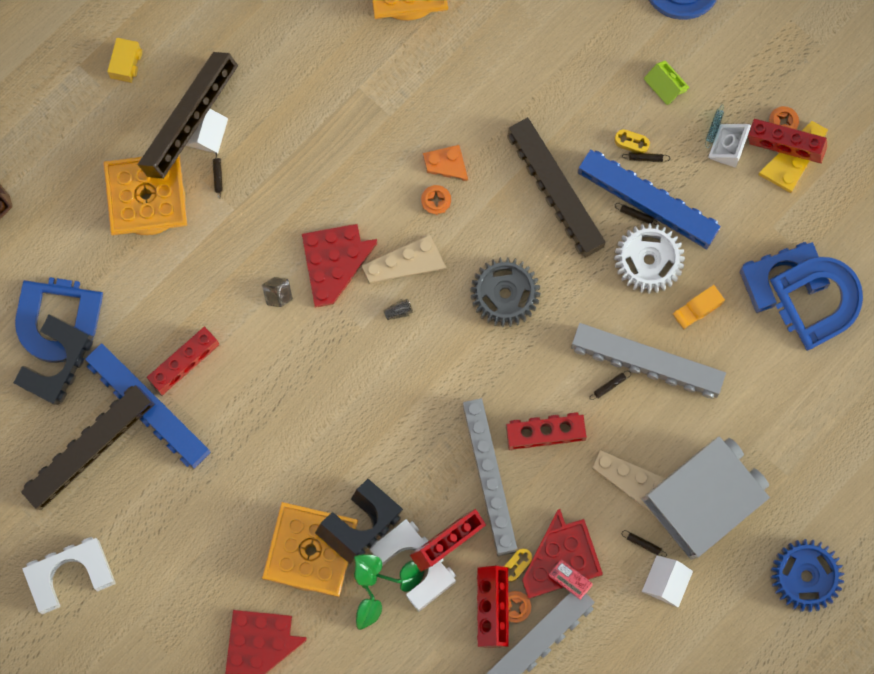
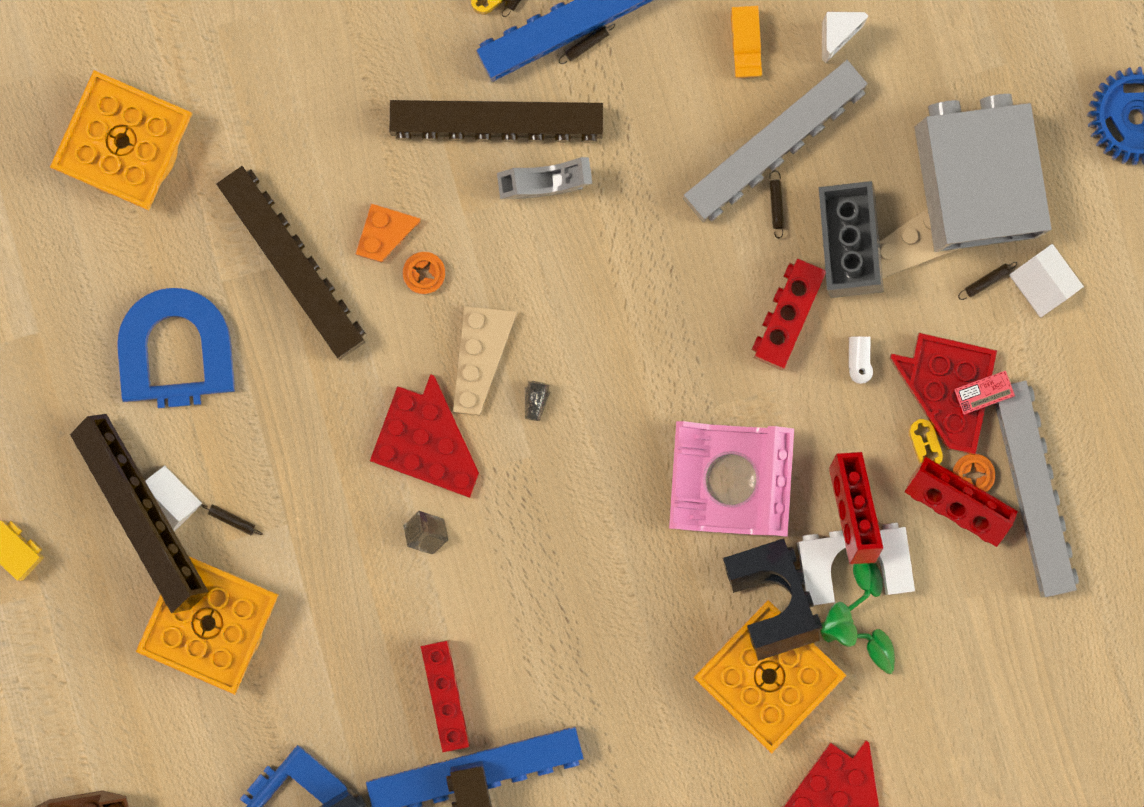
camera: 60 degrees left, 10 degrees up
(287, 60) = (134, 352): none -> blue piece
(393, 119) = (291, 263): none -> dark brown brick
(420, 454) = (731, 479): none -> bright pink panel
(489, 477) = (805, 413): light grey brick -> none
(515, 283) = (589, 239): dark grey gear -> none
(535, 235) = (544, 181): none -> light grey arch
(545, 492) = (860, 359): none -> white piece
(615, 440) = (851, 239): none -> dark grey brick
(662, 252) = (653, 43): white gear -> none
(740, 358) = (838, 30): none -> white slope

